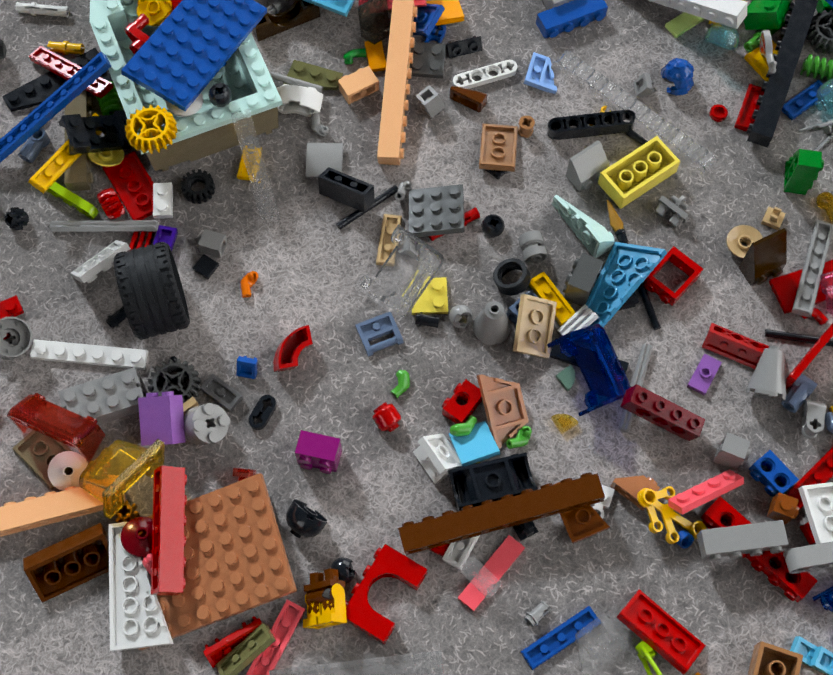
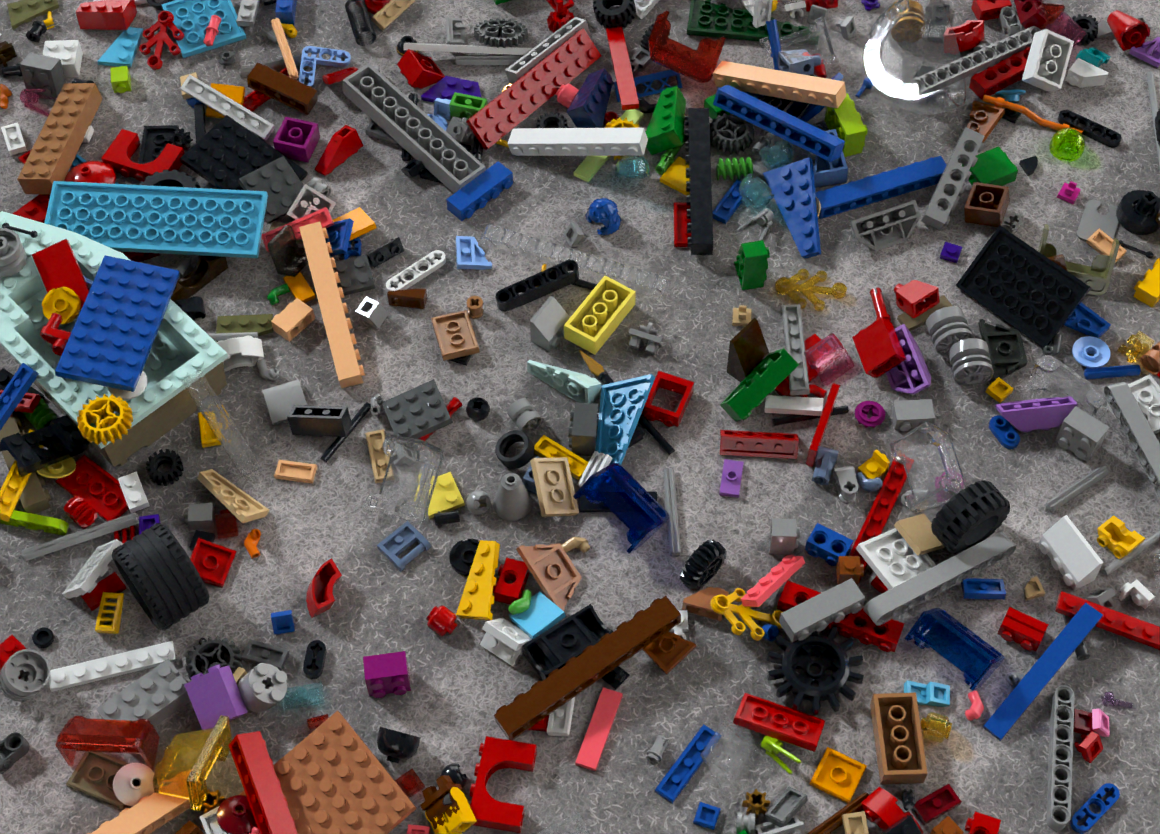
camera: 20 degrees left, 10 degrees down
(41, 307) = (43, 637): none -> black tile
(94, 308) = (114, 628): none -> yellow slope
(102, 284) = (110, 584): none -> red tile
(116, 318) = (126, 624): black pin -> none
(204, 289) = (212, 561): none -> red tile
(220, 95) = (163, 365): black piece -> none
(232, 257) = (226, 524): none -> clear red bracket
(240, 443) = (303, 696): none -> clear light blue plate
(247, 239) = (233, 498): none -> tan wing
(271, 45) = (192, 307): none -> black piece
(302, 560) = (410, 783): none -> clear red plate
(309, 229) = (295, 471): none -> light nougat tile
(403, 383) = (446, 585): bright green arm -> none
(428, 402) = (478, 591): none -> yellow wing
(439, 365) = (461, 556): none -> black tile
(480, 577) = (590, 732): clear hinge -> none
(521, 438) = (581, 595): bright green arm -> none
(536, 386) = (576, 542): none -> tan arm
(564, 422) = (616, 566): clear yellow tile -> none
(567, 377) = (603, 525): sand green tile -> none
(645, 452) = (703, 564): none -> black gear
(662, 412) = (705, 523): dark red brick -> none
(718, 113) = (654, 238): red tile -> none
(732, 584) = (829, 655): none -> black gear
(741, 234) = (716, 341): tan dish -> none
(765, 292) = (759, 384): none -> green wedge
(766, 49) = (678, 167): light grey piece -> none
(769, 375) = (791, 457): light grey cone -> none
(791, 323) = (793, 405): none -> white tile

